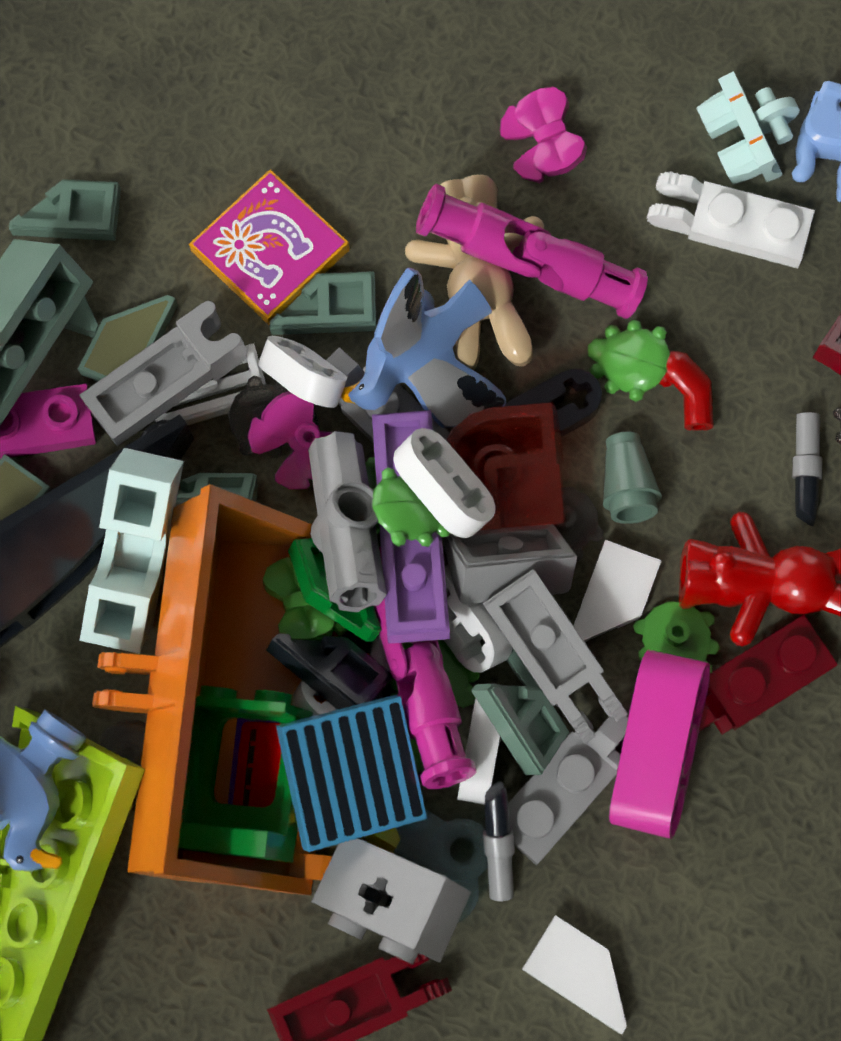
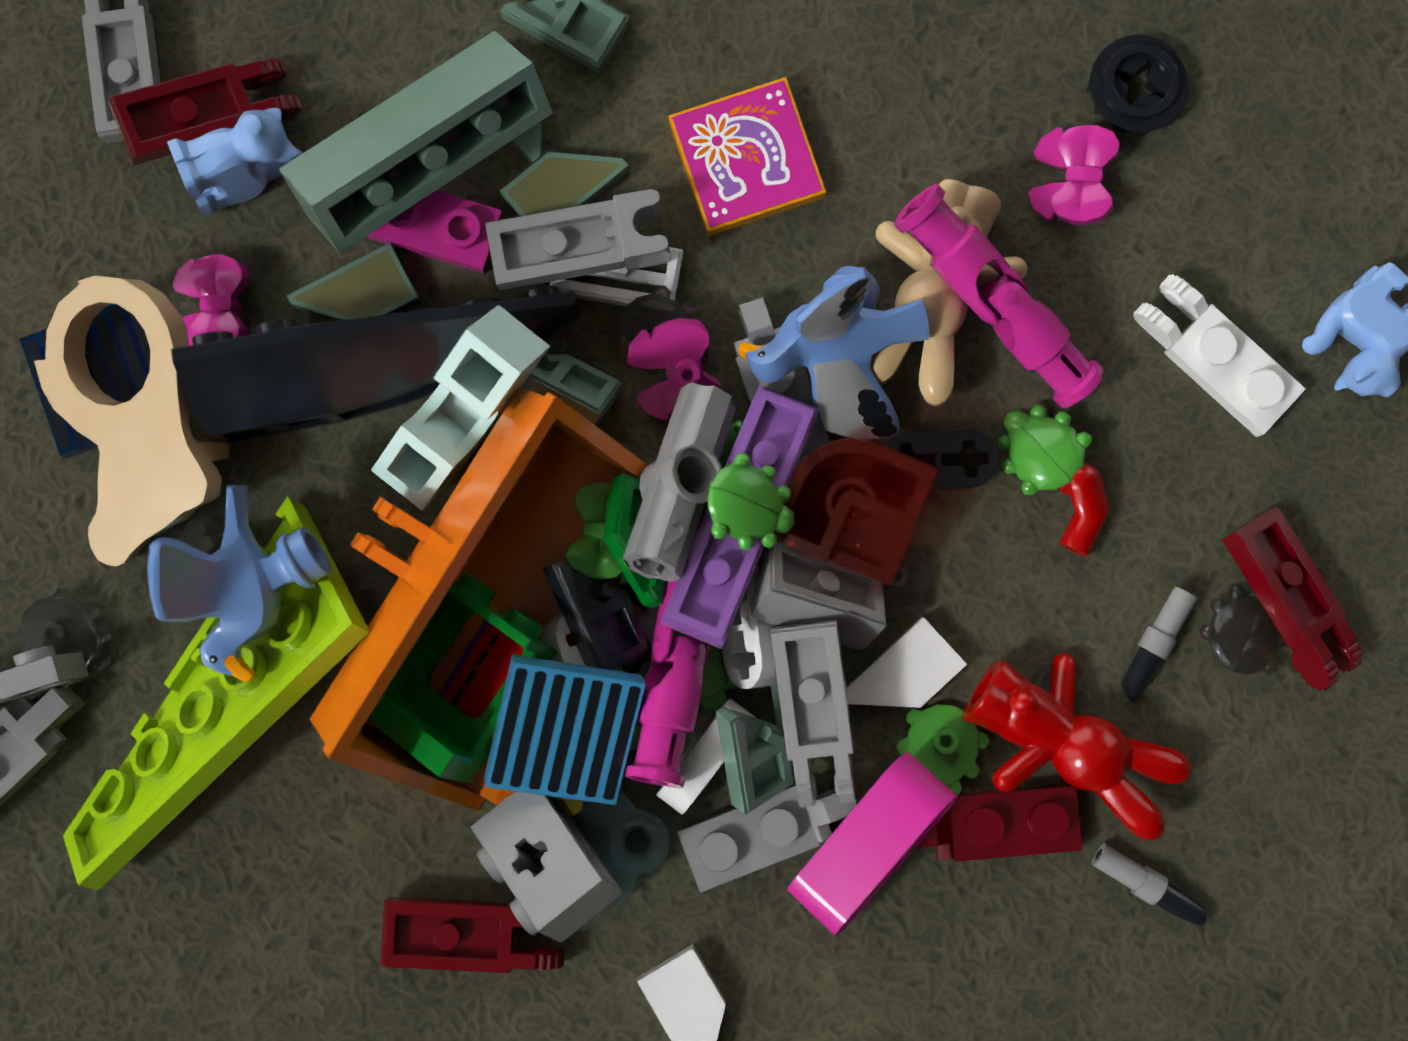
camera: 25 degrees right, 10 degrees up
(302, 371) = (713, 306): white beam -> none
(330, 305) = (777, 247): sand green tile -> none
(444, 483) = (791, 496): white beam -> none
(498, 843) = (673, 857): piece -> none
(574, 29) = (1165, 79): none -> black gear
(629, 481) = (977, 570): sand green cone -> none
(732, 109) = (1280, 242): light aqua hips -> none

